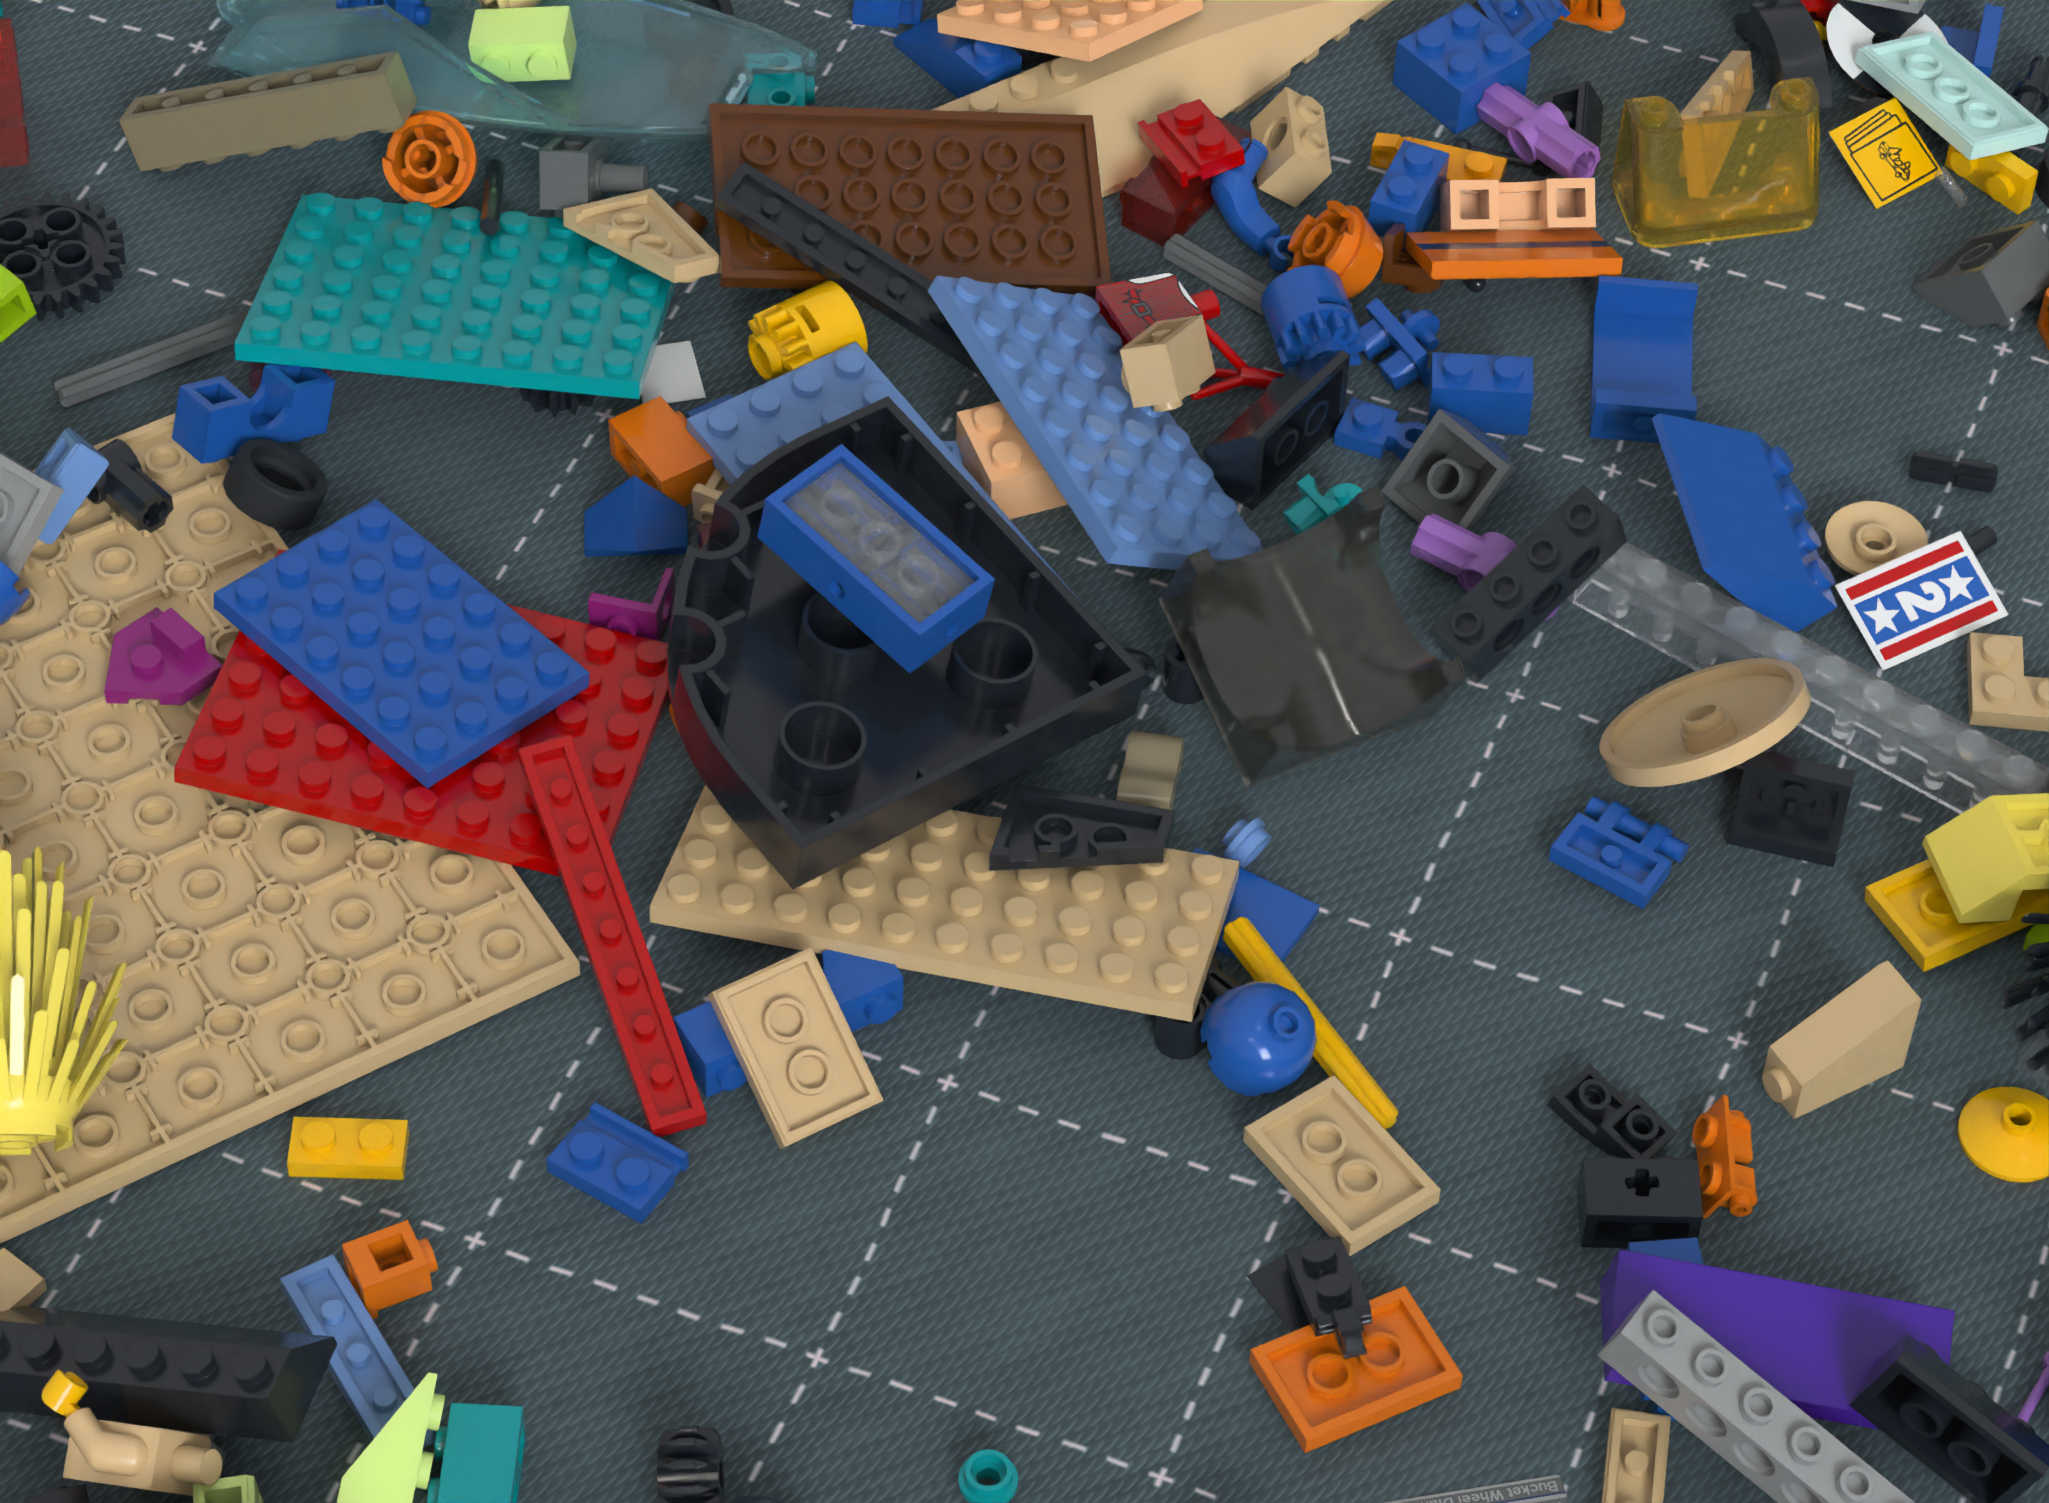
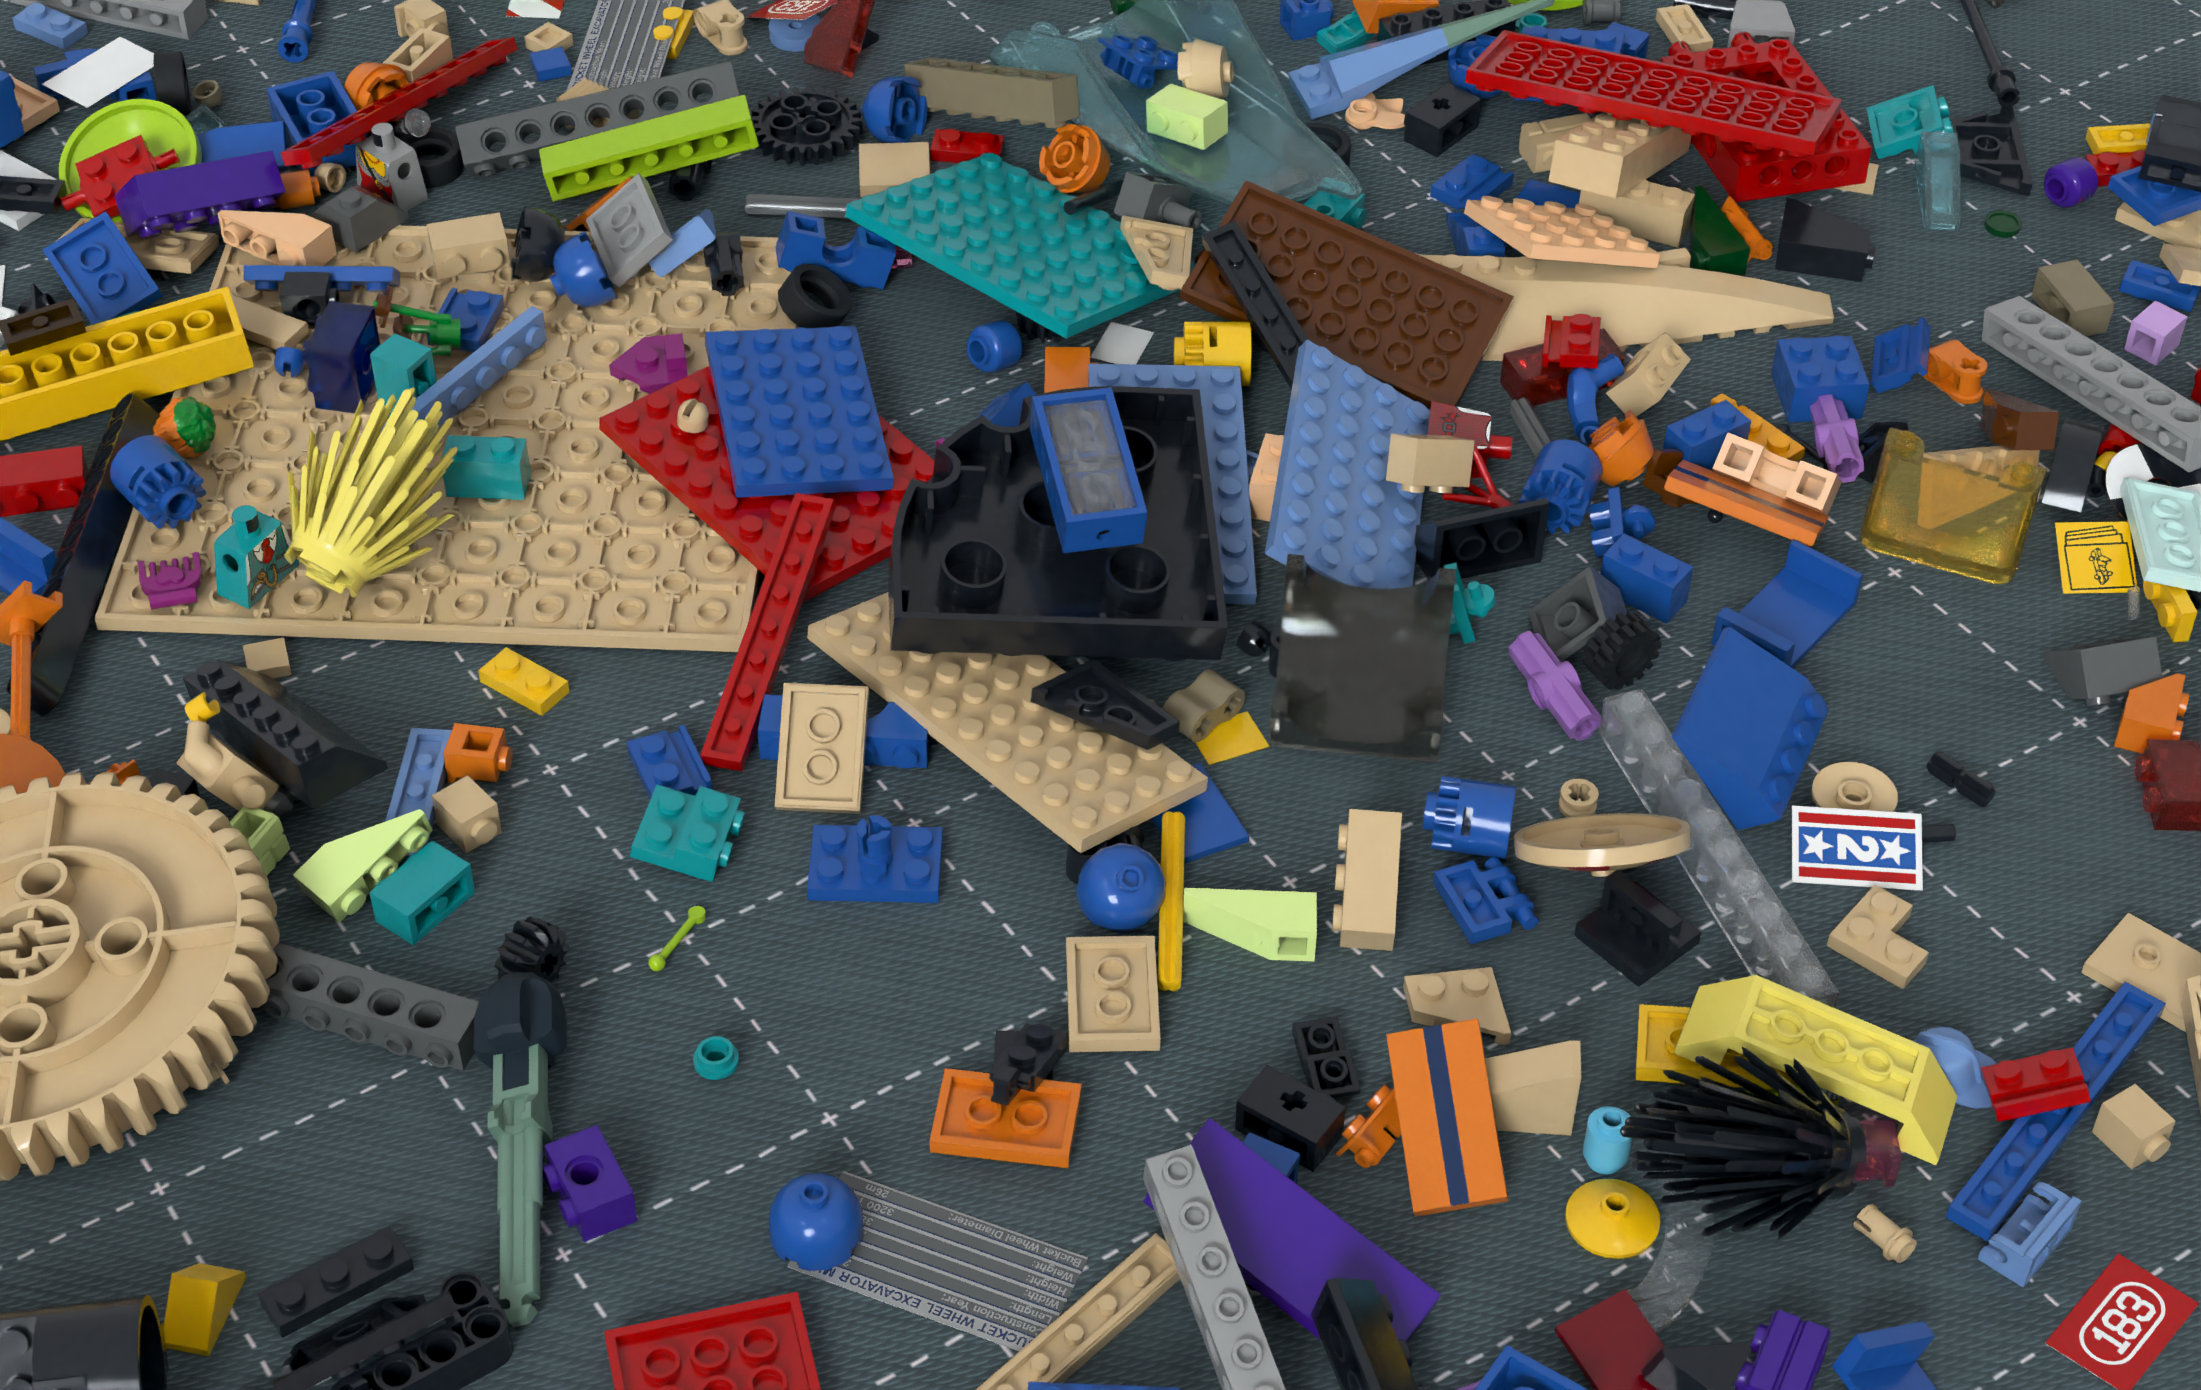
camera: 35 degrees right, 5 degrees down
(113, 882) = (487, 467): none -> teal brick
(143, 189) = (895, 109): none -> blue cylinder
(199, 266) = (891, 165): none -> tan tile
(260, 197) = (961, 146): none -> red plate
(293, 722) = (698, 416): none -> tan hinge
(446, 1344) = (467, 814): none -> tan brick
(536, 445) = (994, 346): none -> blue head
(721, 1228) = (688, 831): none -> teal plate
(808, 1325) = (696, 915): none -> lime hinge
(953, 1153) = (875, 862): none -> blue plate
(1202, 801) = (1232, 739): none -> yellow sticker
(1246, 841) = (1230, 773): medium blue plate -> none
(1375, 429) = (1551, 568): blue plate -> none
(1428, 998) = (1263, 922): none -> yellowish green slope
(1501, 891) = (1368, 879): none -> tan wedge
(1530, 583) = (1555, 699): black brick -> none
(1533, 489) = (1621, 650): none -> black tyre
(1545, 763) = (1470, 816): none -> blue gear
(1615, 673) = (1580, 790): none -> tan bush
(1685, 979) = (1458, 997): none -> tan wing
(1708, 31) = (2018, 422): none -> reddish brown slope
(1804, 1115) = (1447, 1117): none -> orange tile
(1961, 1052) = (1603, 1143): none -> medium azure brick

